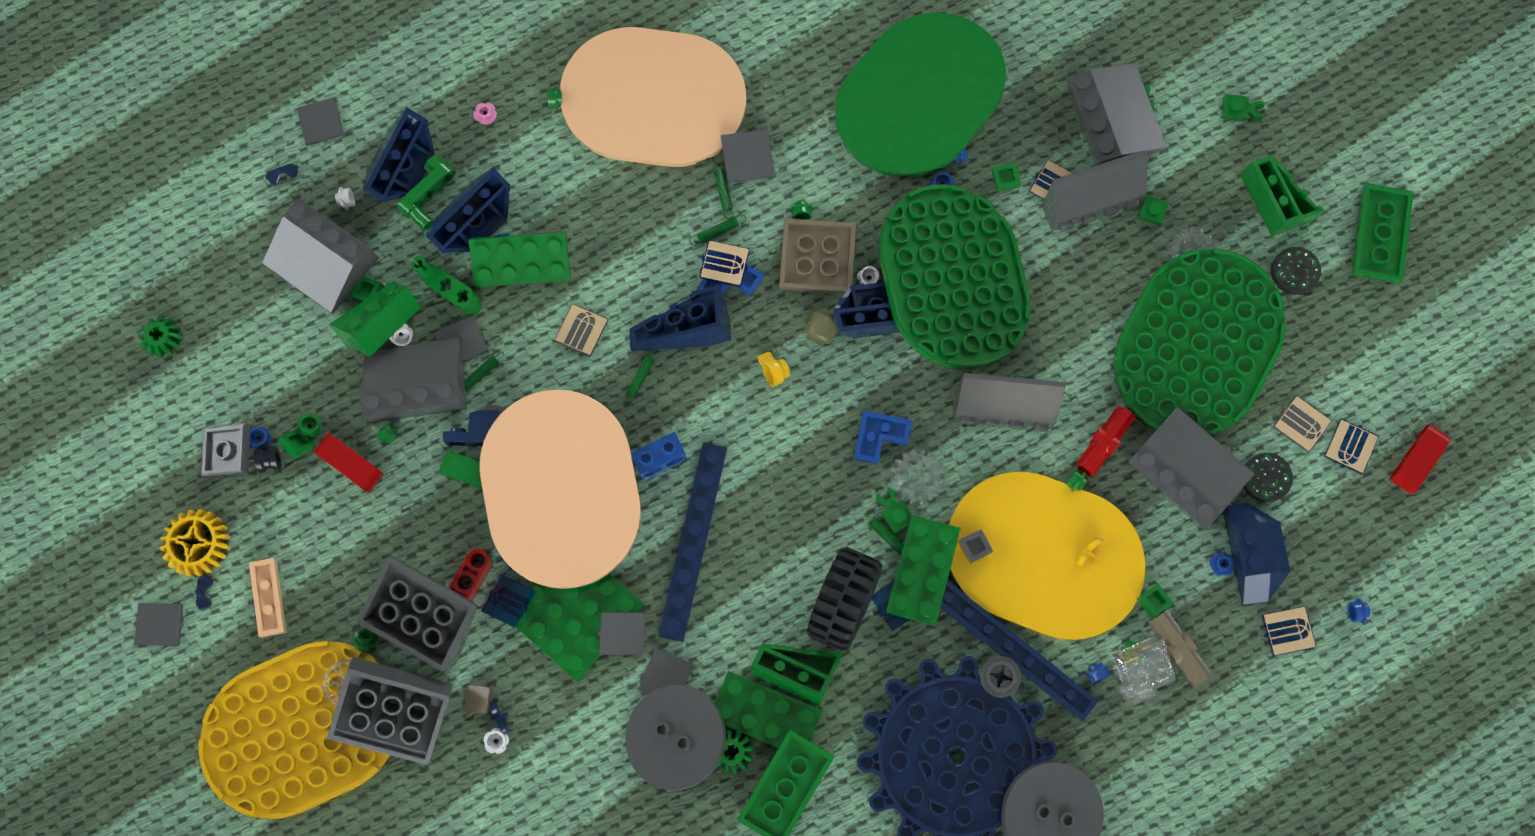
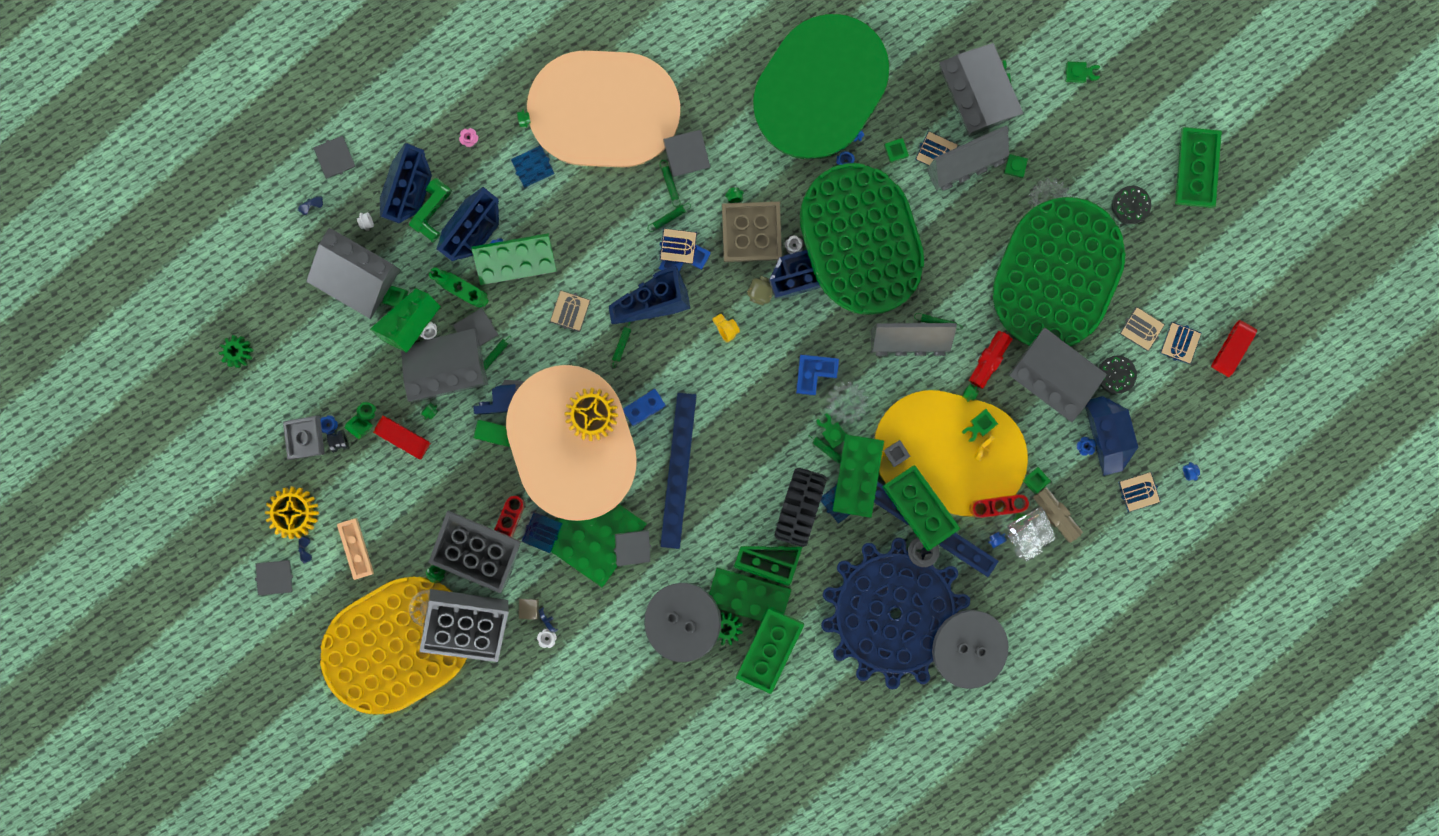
camera: 10 degrees left, 10 degrees up
(558, 154) = (532, 166): none -> piece
(594, 443) = (594, 405): none -> yellow gear
(665, 670) = (668, 572): dark grey piece -> none
(1002, 619) = (921, 507): none -> green plate
(1088, 520) = (981, 424): none -> green plate
(1115, 623) = (1008, 506): none -> red beam
(1278, 197) = (1114, 146): green wedge -> none

